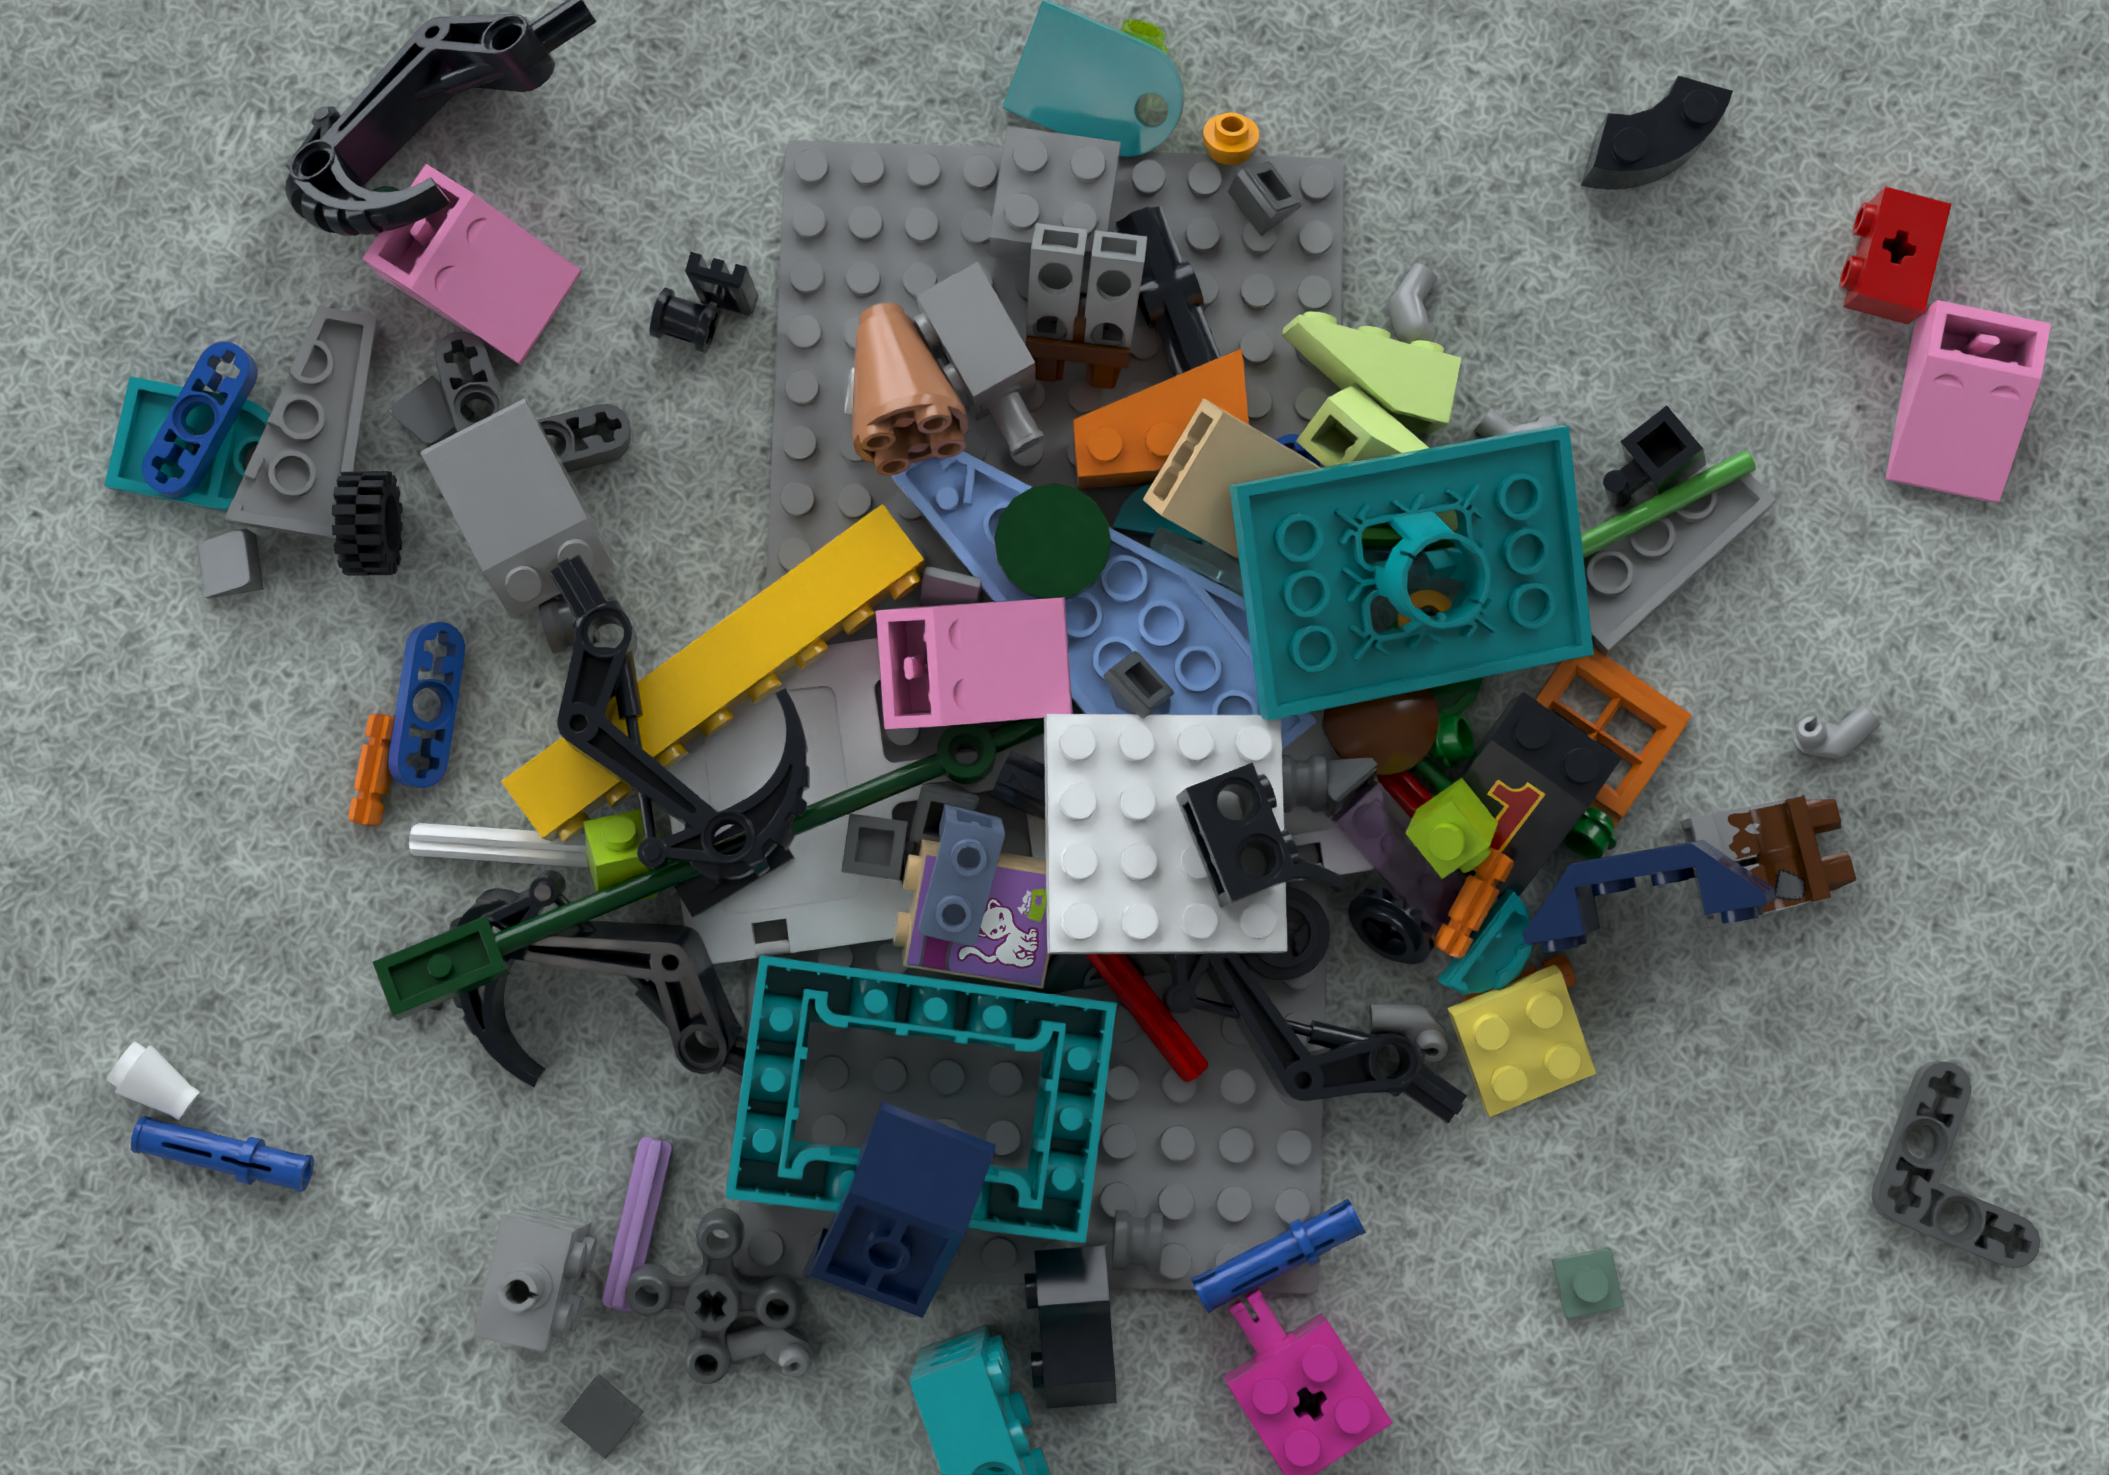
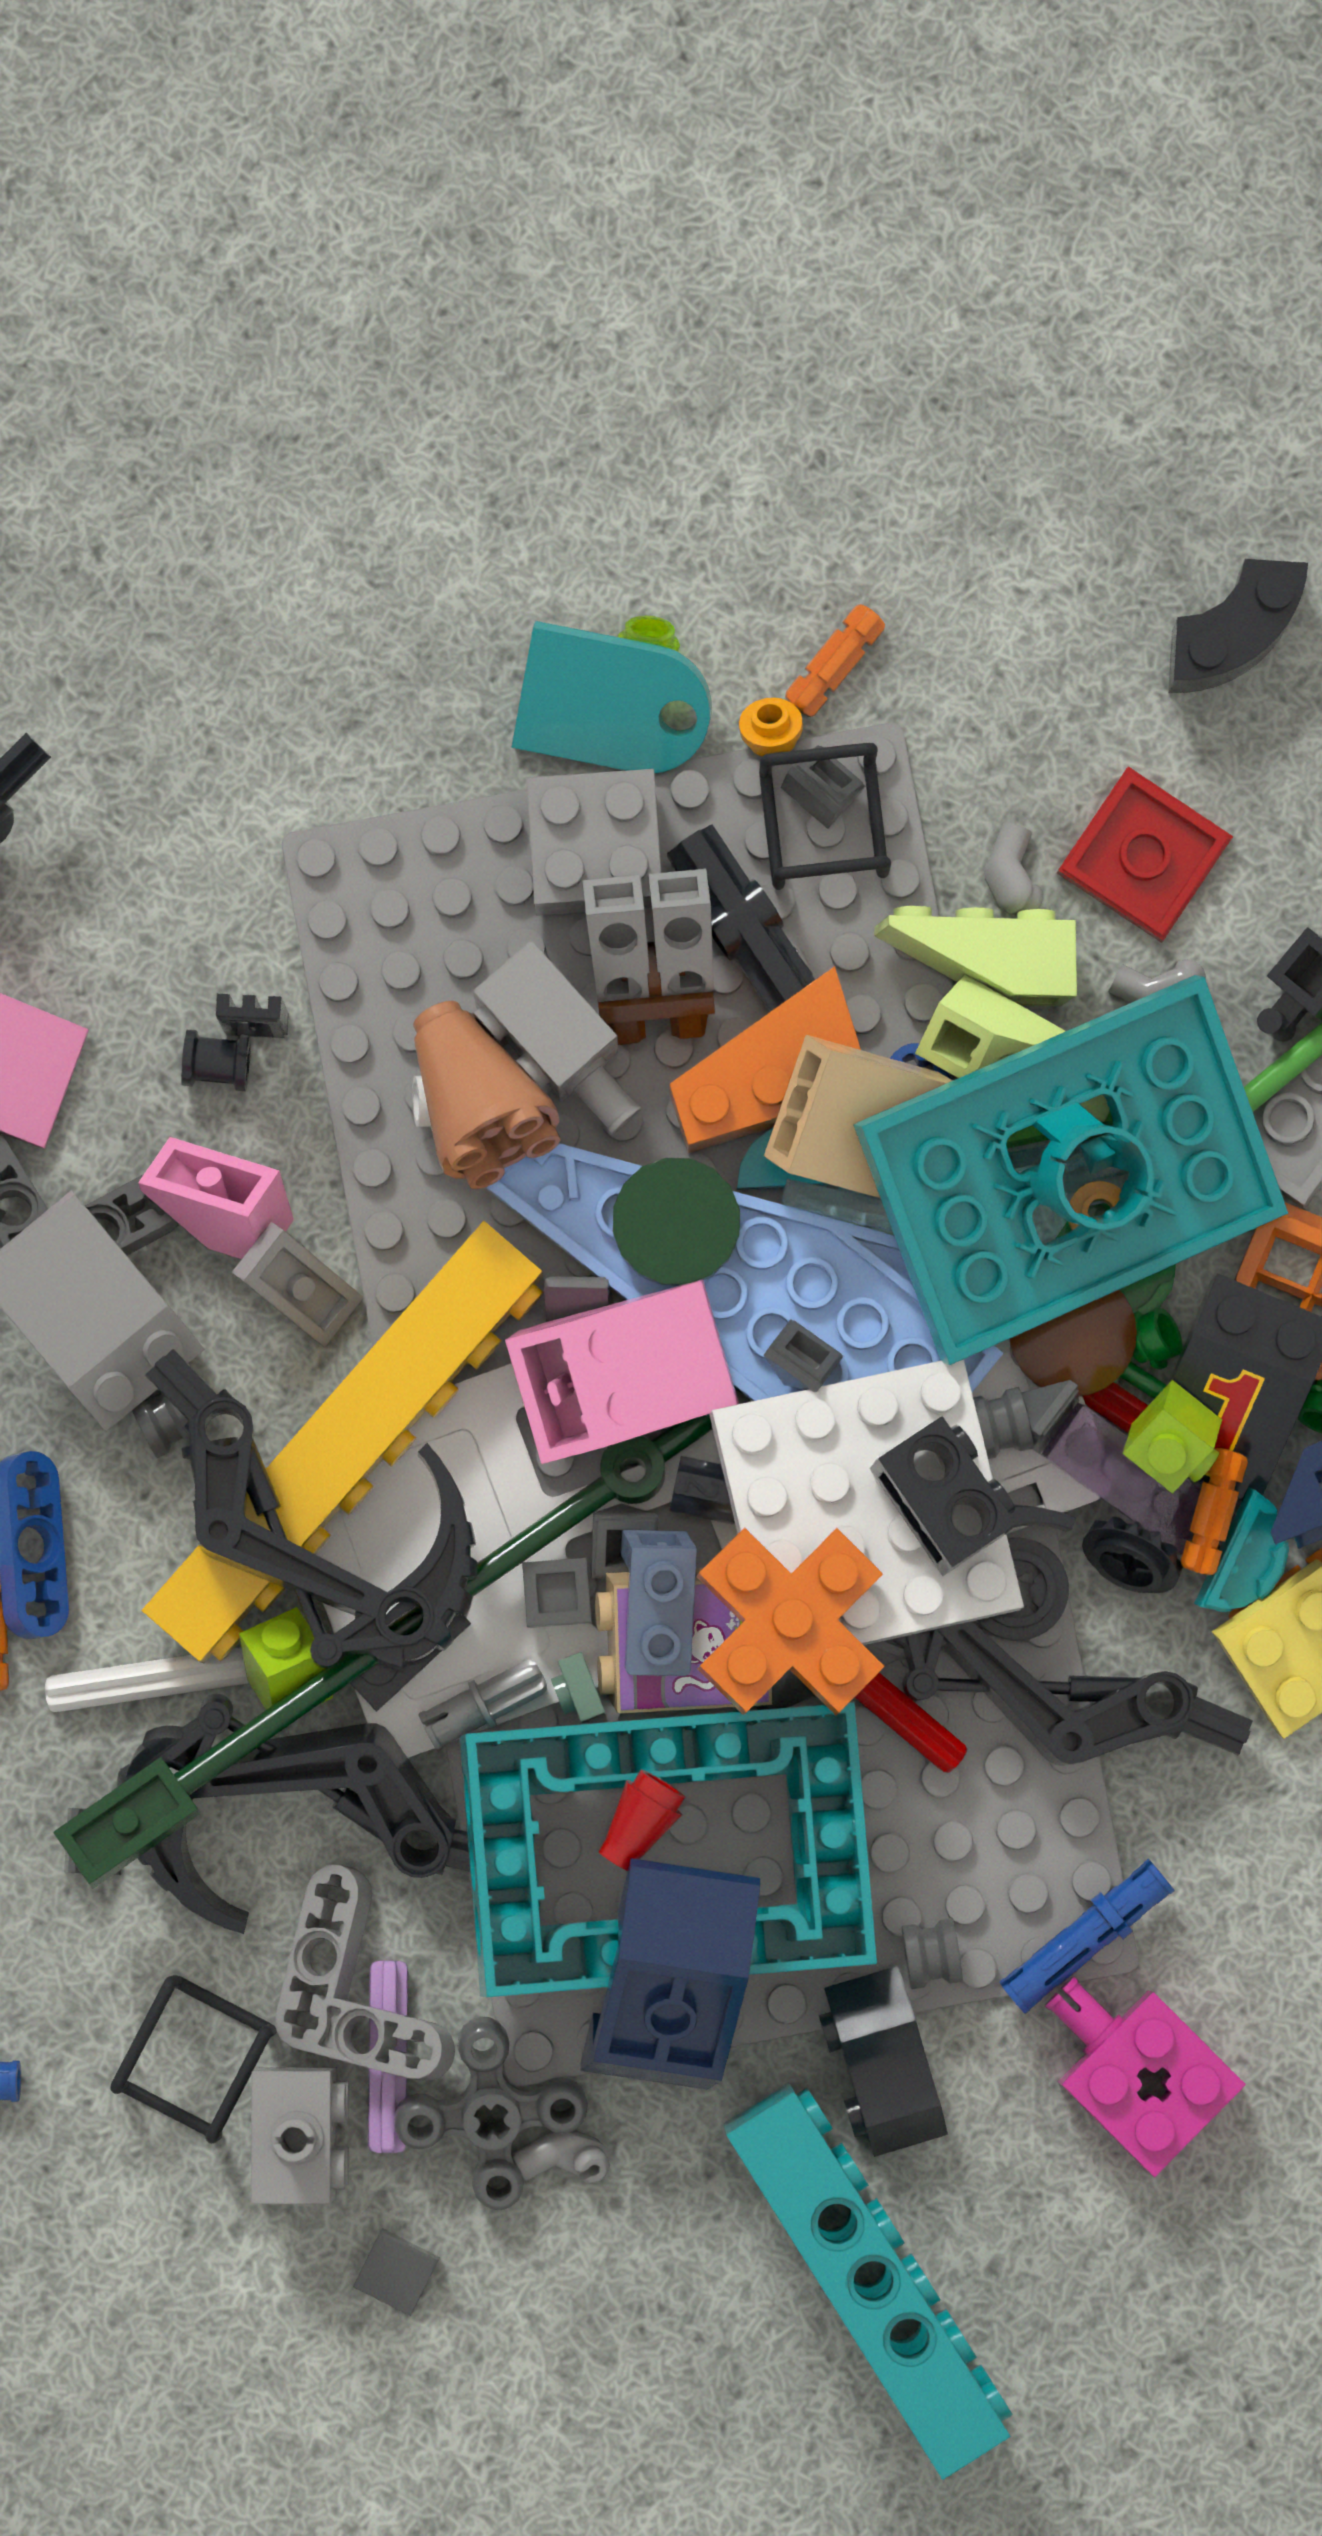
camera: 10 degrees left, 0 degrees up
(467, 1254) = (212, 2131): none -> black piece
(598, 1173) = (335, 2012): none -> light grey beam
(659, 439) = (217, 1195): none -> bright pink slope
(709, 527) = (297, 1284): none -> light grey plate
(788, 931) = (483, 1703): none -> light grey axle
(873, 936) = (576, 1689): none -> sand green plate
(900, 1067) = (641, 1818): none -> red cone
(1074, 918) = (790, 1621): none -> orange plate
(1299, 93) = (835, 660): none -> orange axle
(1300, 265) = (879, 861): none -> black piece
(1415, 1024) = (1181, 1656): light grey arm -> none
(1531, 318) = (1144, 854): none -> red tile

